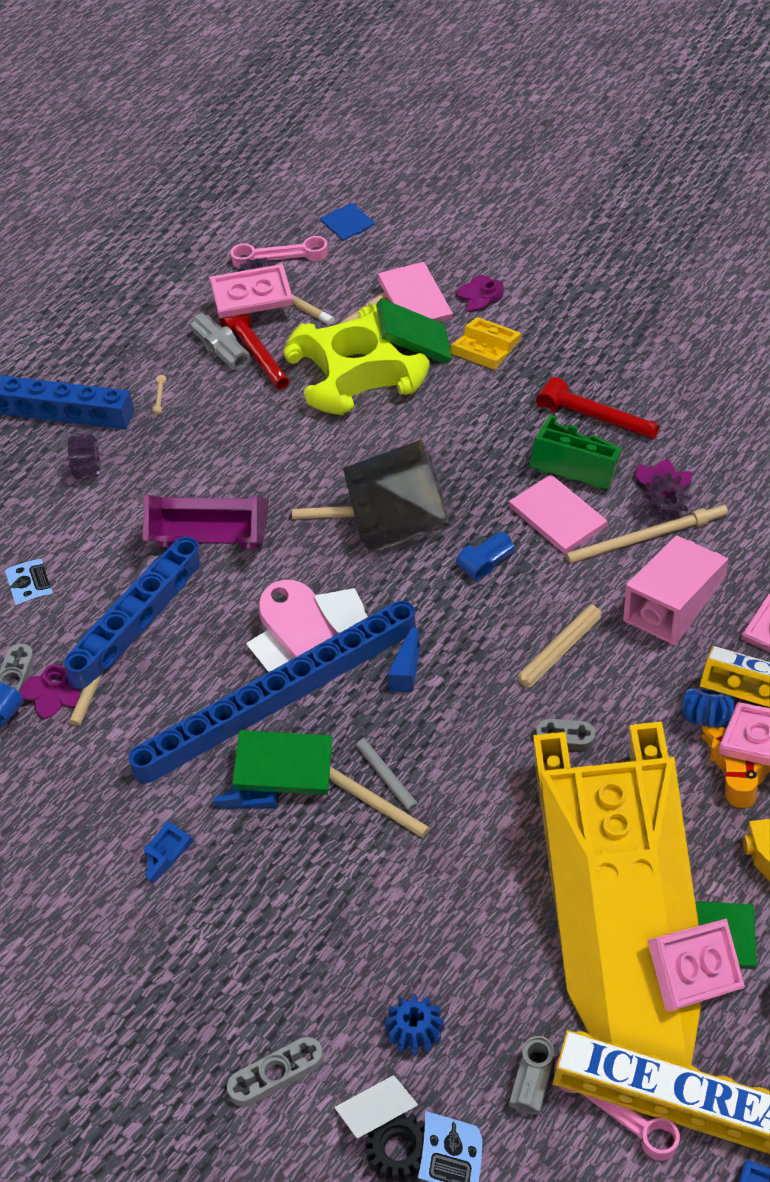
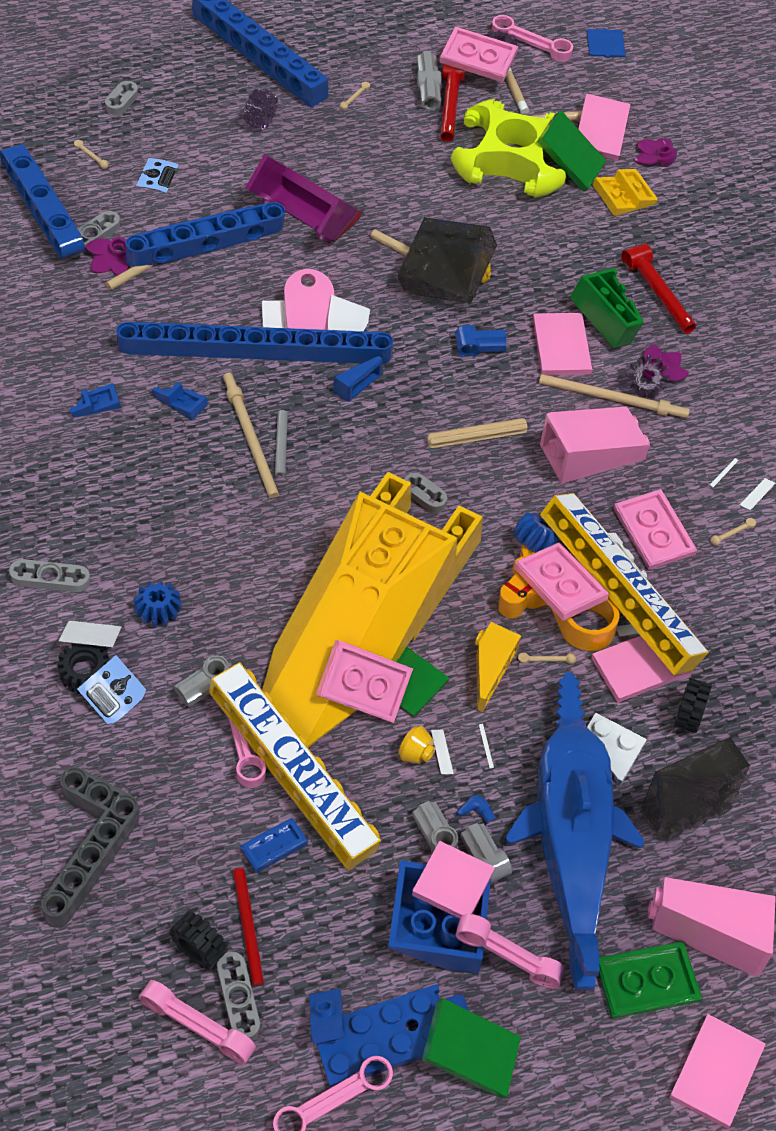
camera: 25 degrees right, 5 degrees up
(283, 762) = (215, 391): green tile -> none

